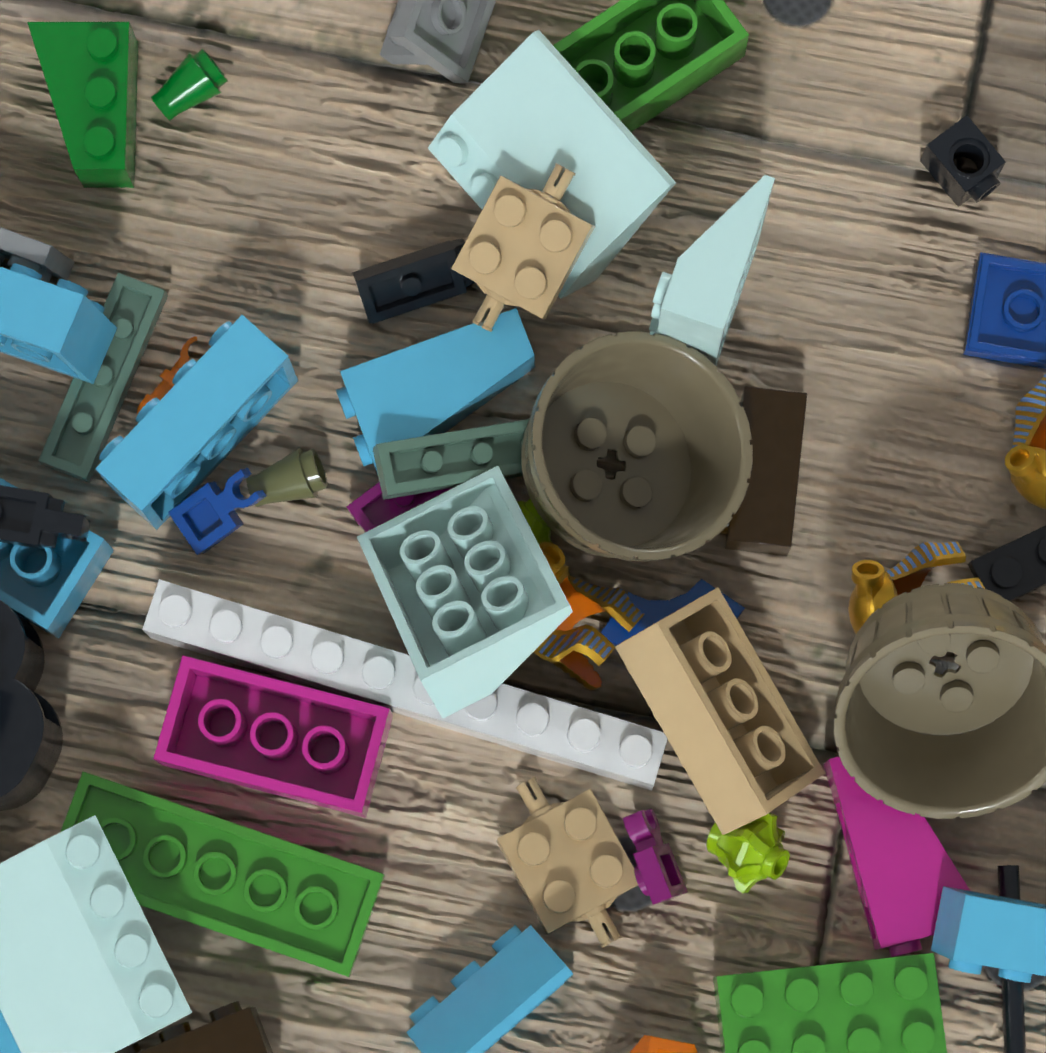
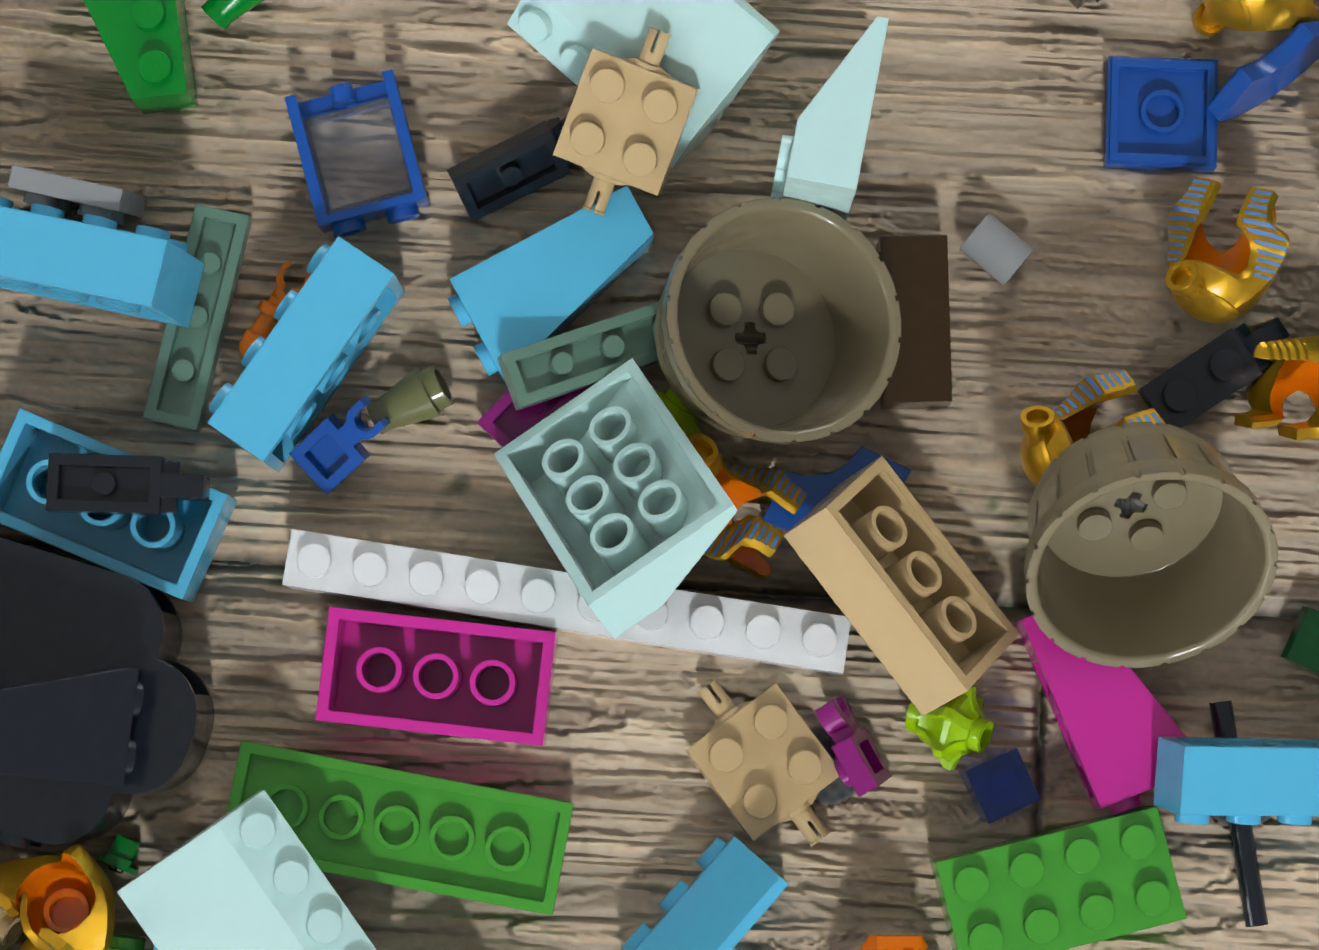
camera: 10 degrees left, 5 degrees up
(273, 250) = (358, 156): none -> window
(787, 913) = (999, 785): none -> clear blue brick
(852, 414) = (996, 249): none -> light grey piece

